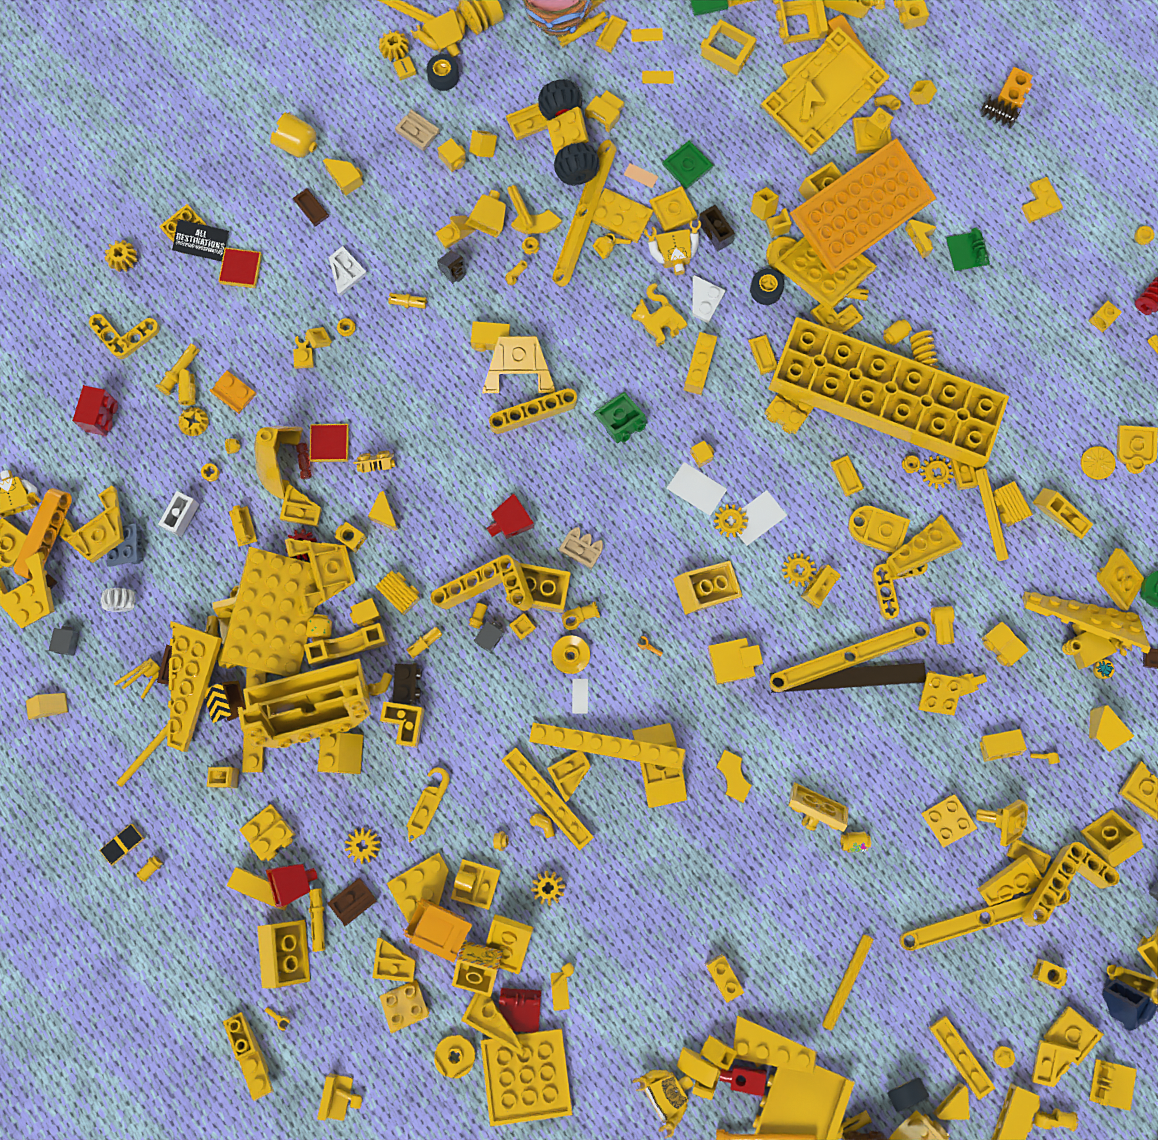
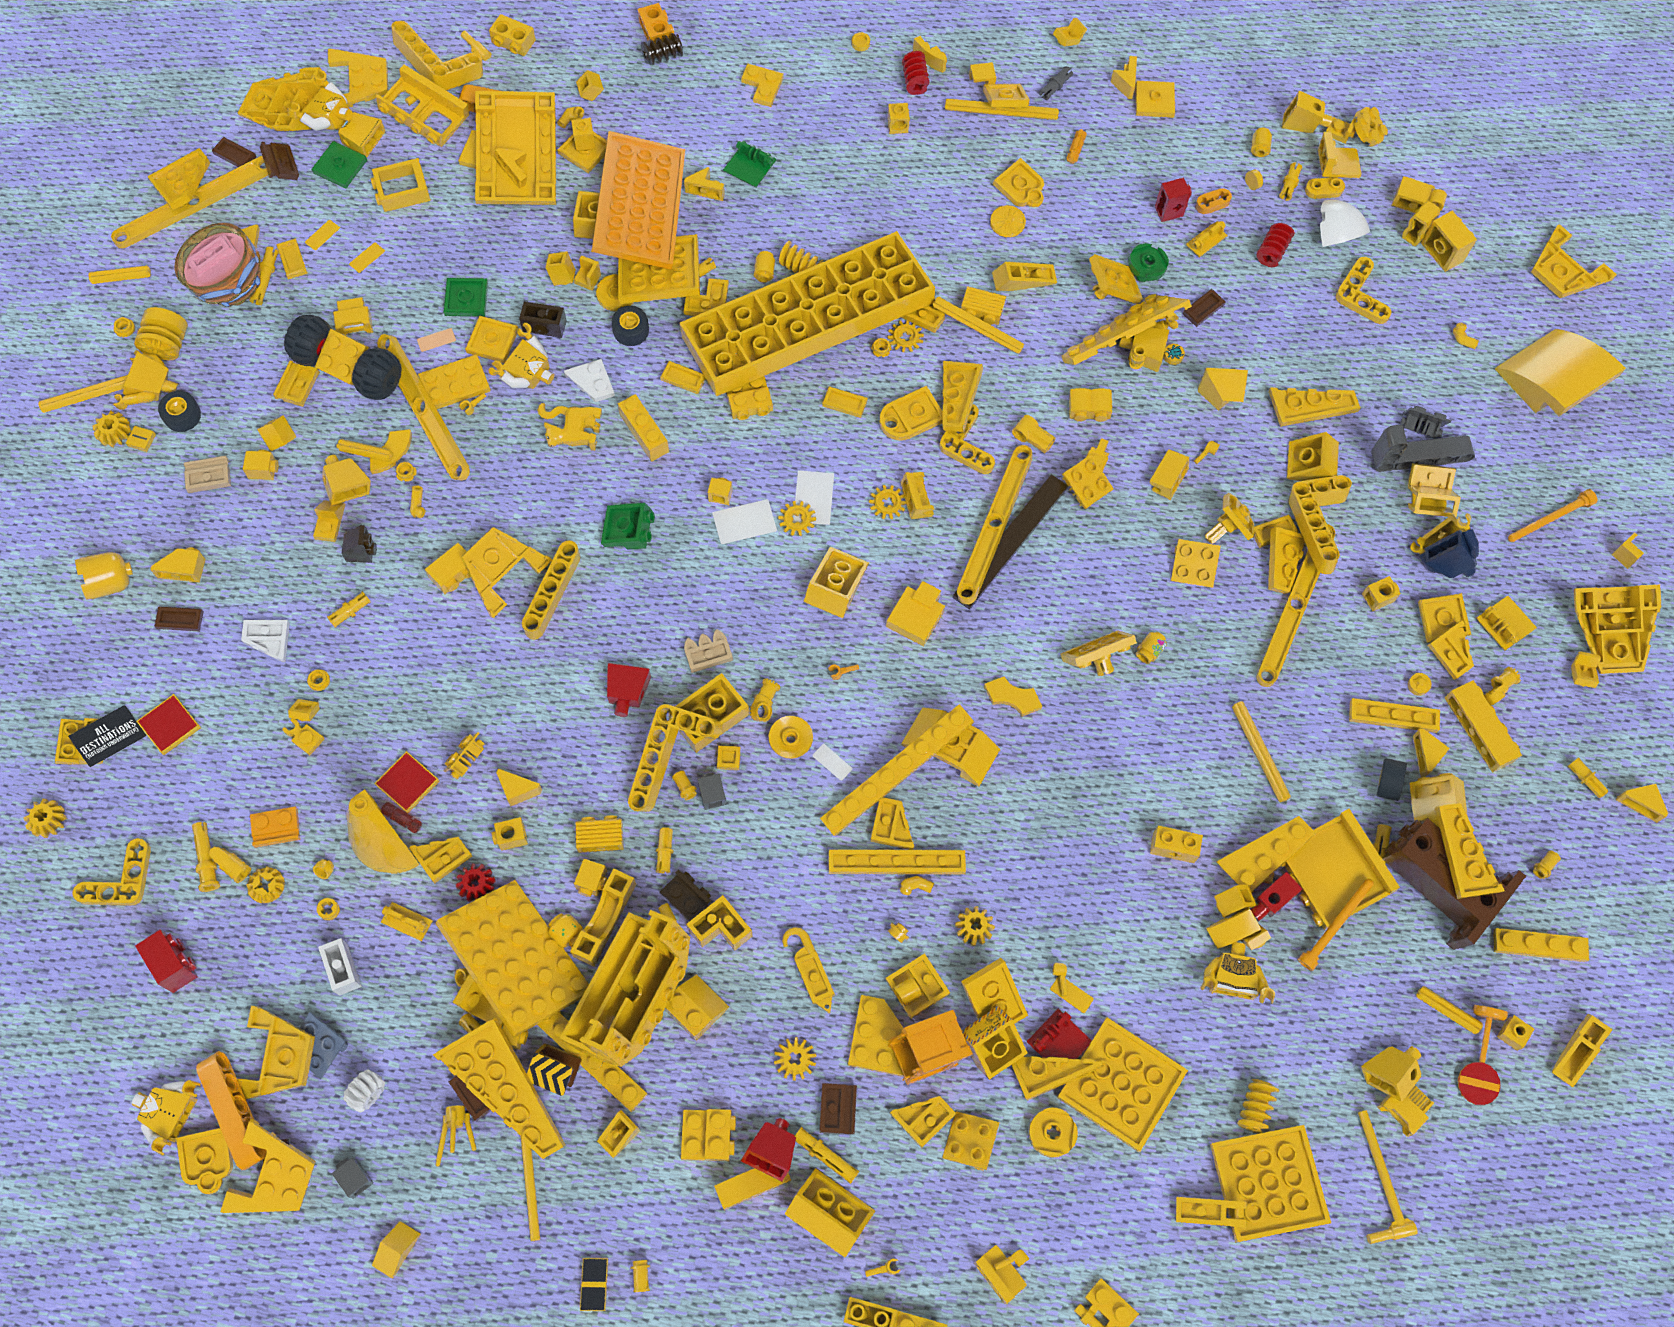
camera: 50 degrees left, 10 degrees down
(329, 566) = (521, 873): yellow wing -> none
(603, 246) = (467, 416): yellow tile -> none

